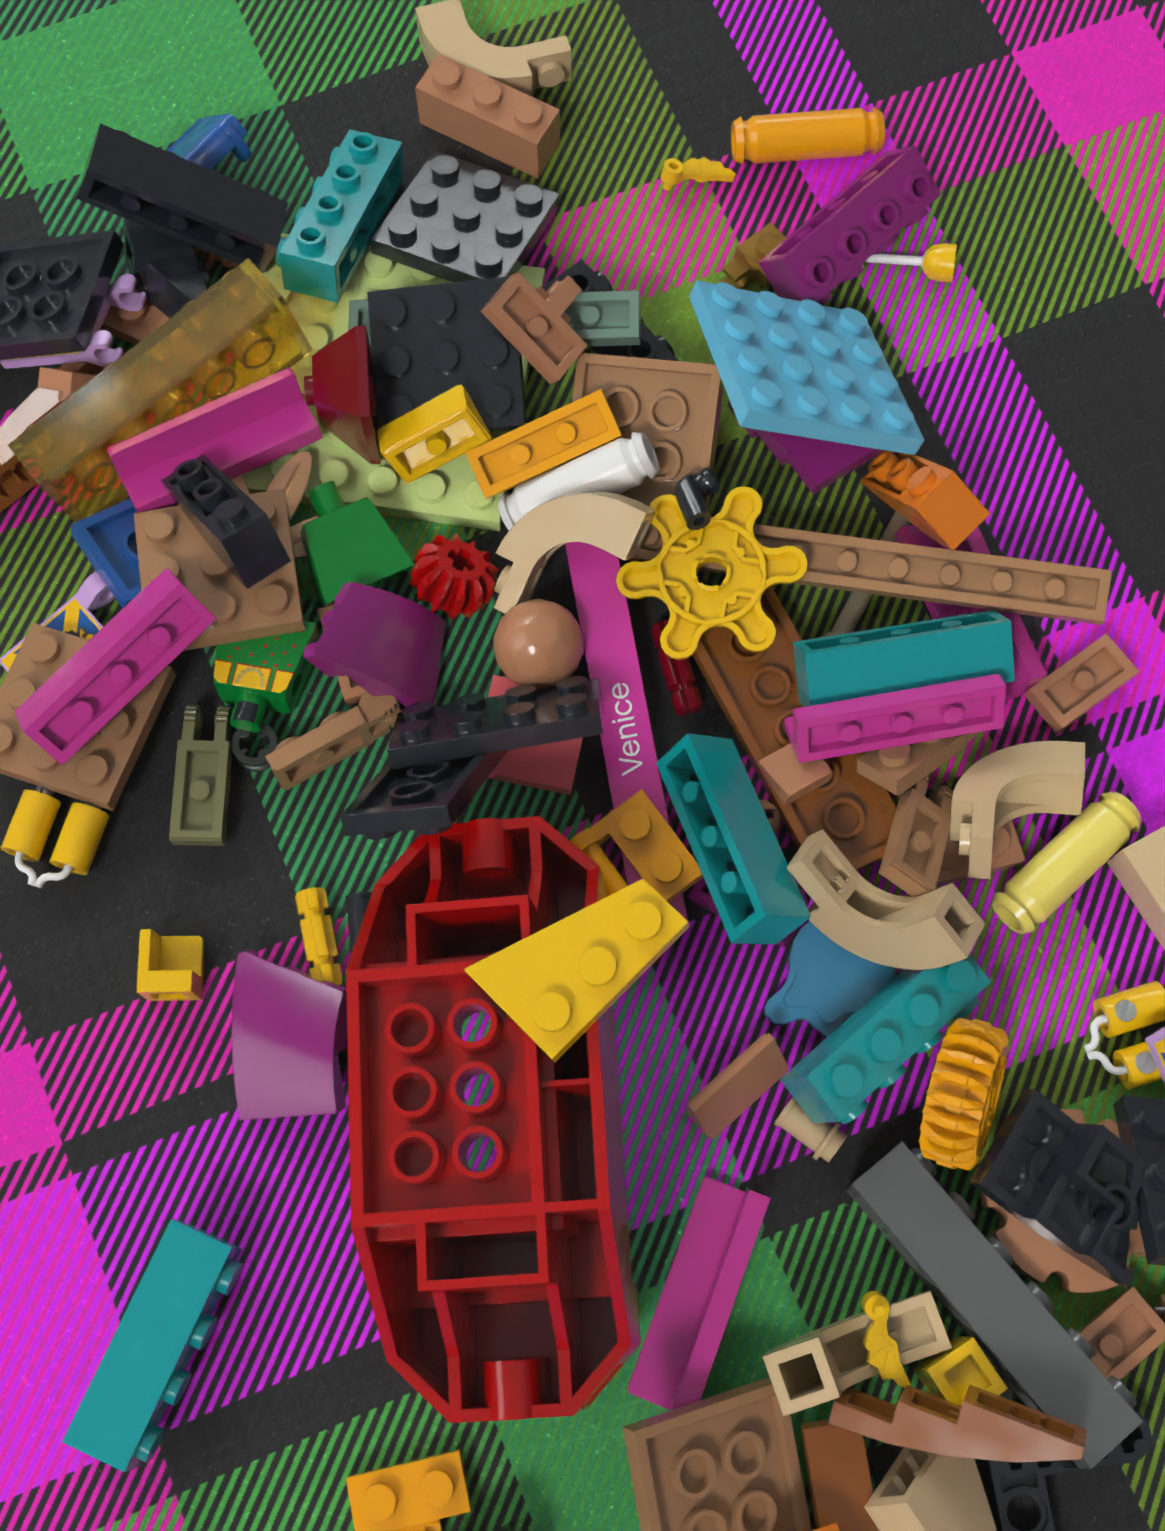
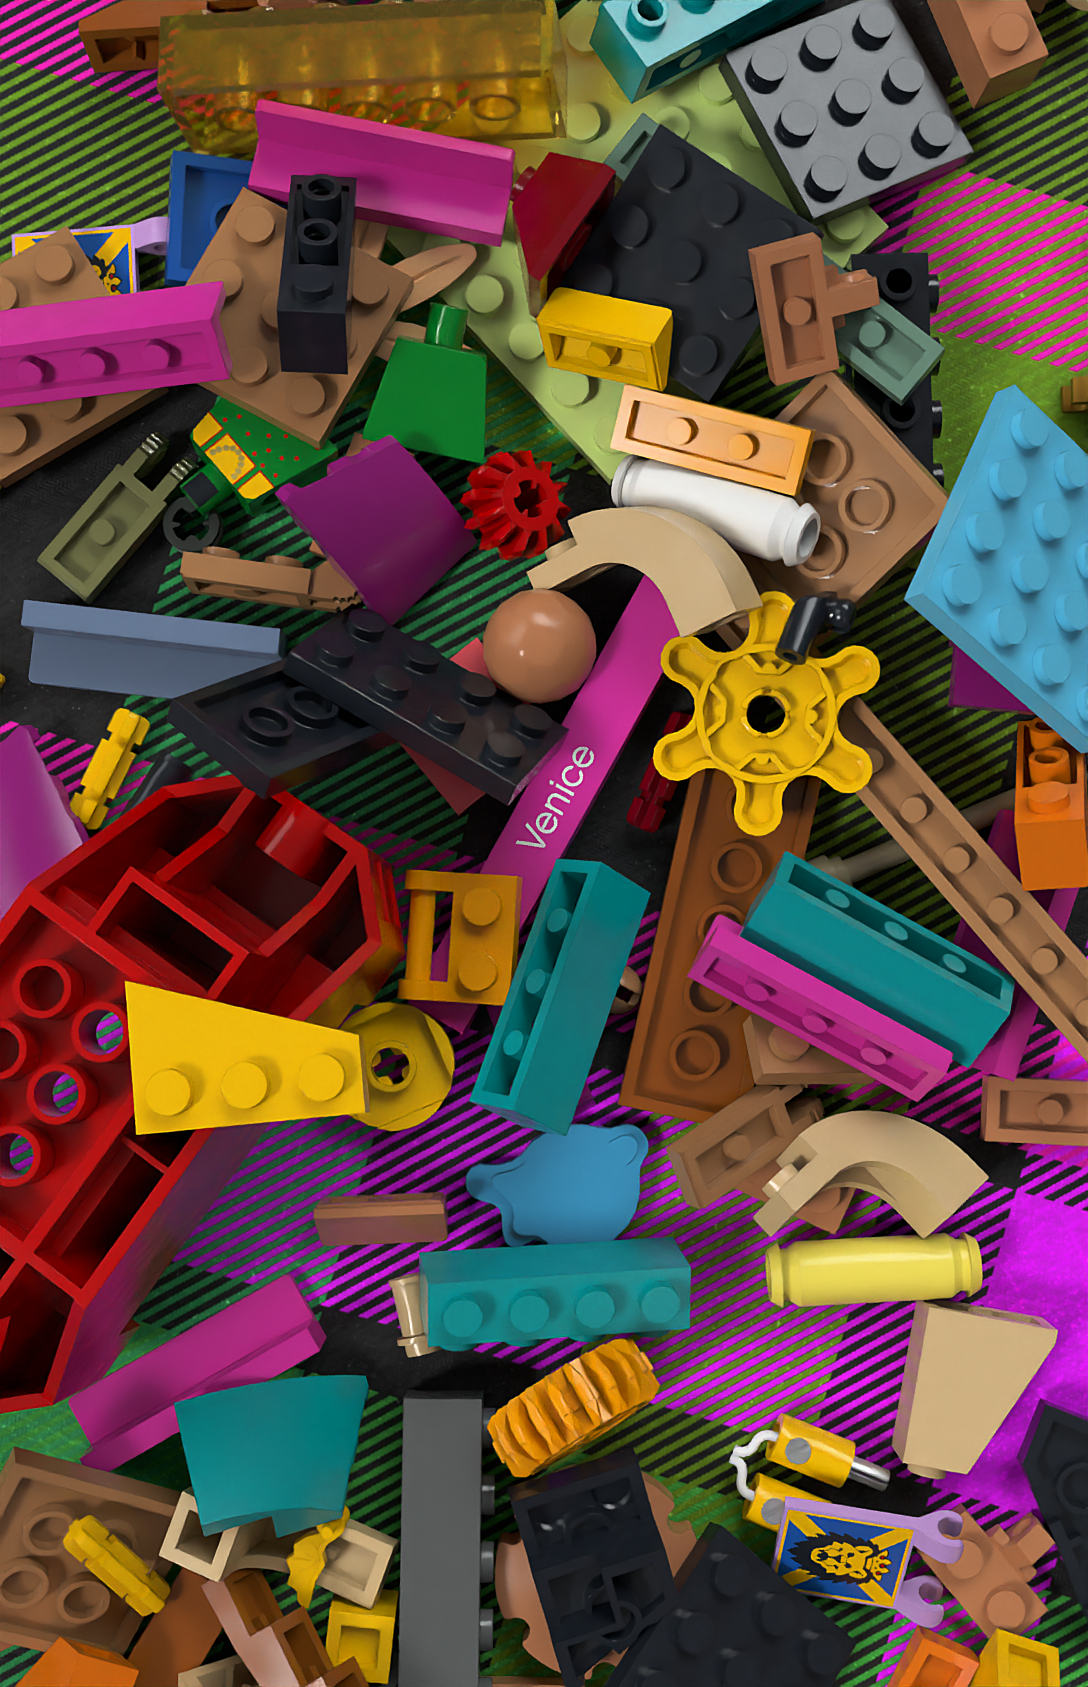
camera: 40 degrees right, 15 degrees up
(280, 847) = (141, 650): none -> sand blue panel
(672, 1009) = (425, 1078): none -> yellow plate
(759, 1460) = (116, 1565): none -> yellow axle
(793, 779) = (669, 979): nougat slope -> none
(796, 1288) = (273, 1451): none -> teal slope
(879, 925) = (634, 1200): tan arch -> none

